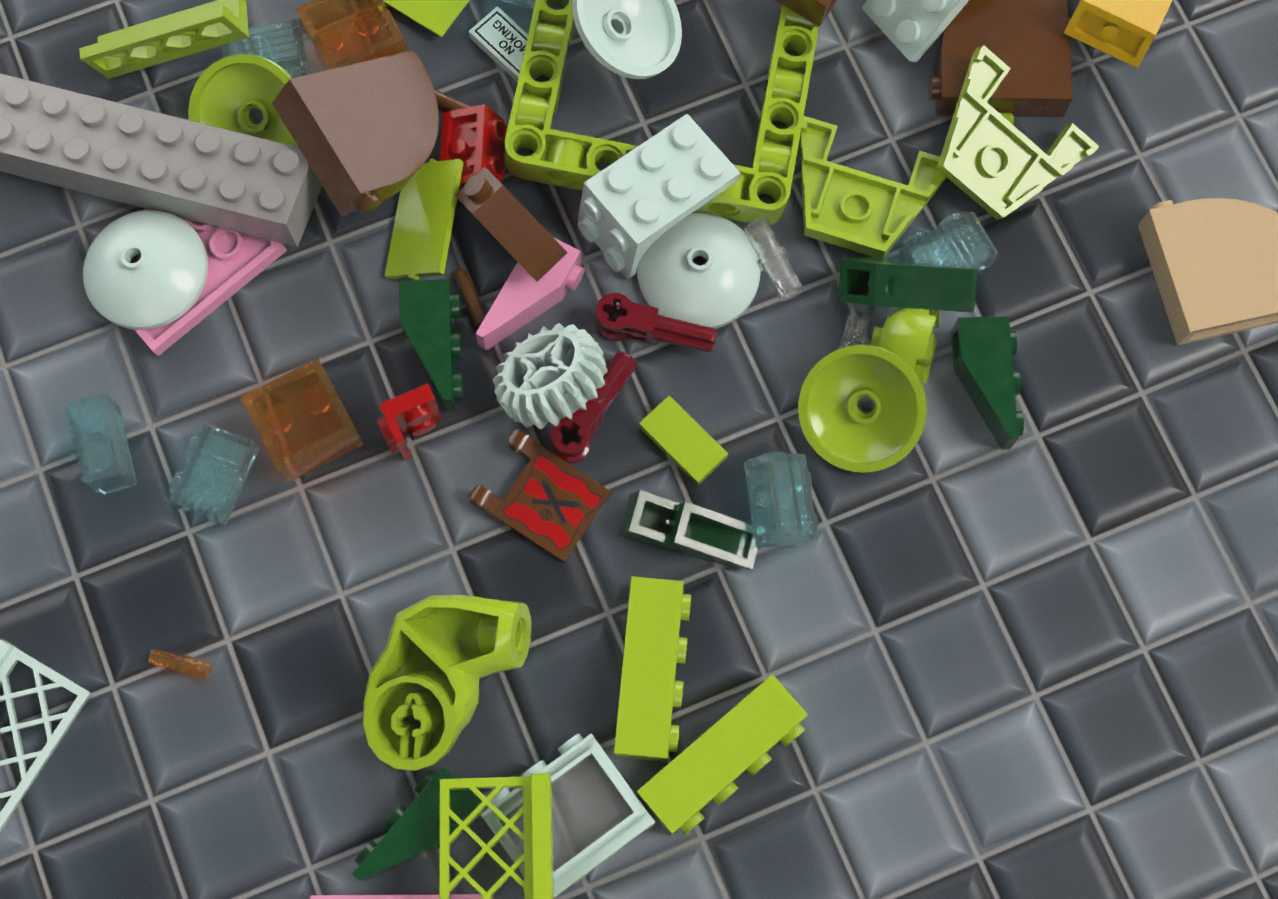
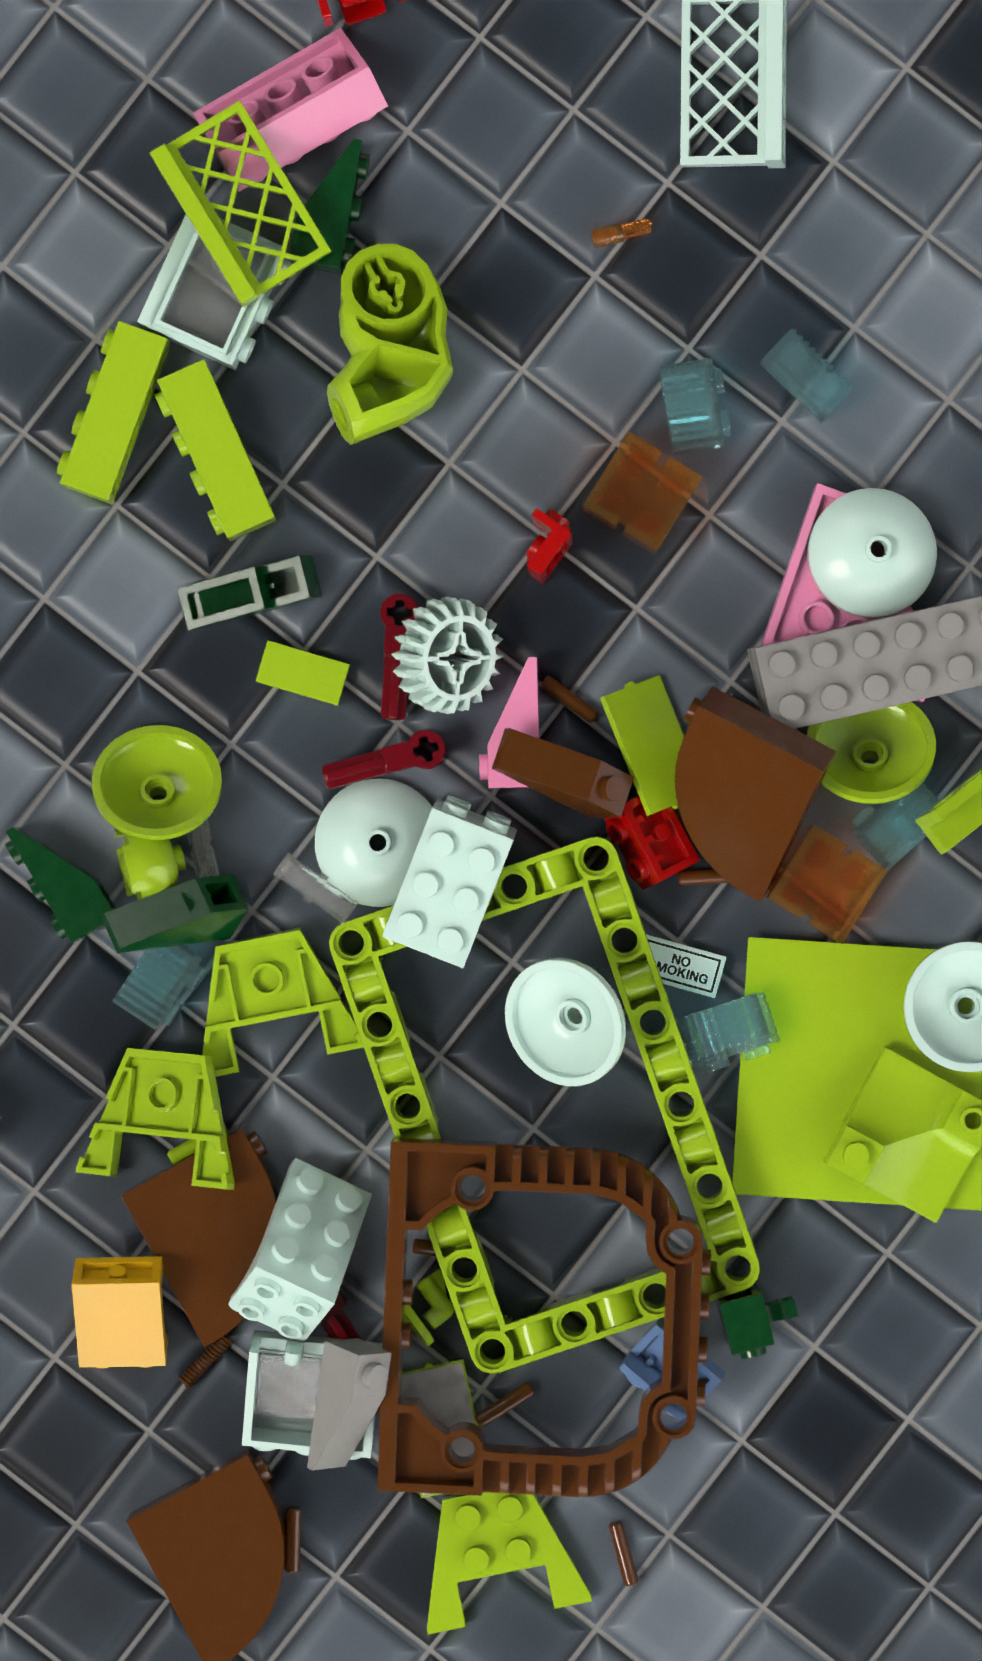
camera: 155 degrees right, 15 degrees up
(427, 321) = (587, 645): dark green slope -> none
(547, 502) = (389, 551): flag -> none
(781, 500) = (184, 660): clear light blue brick -> none

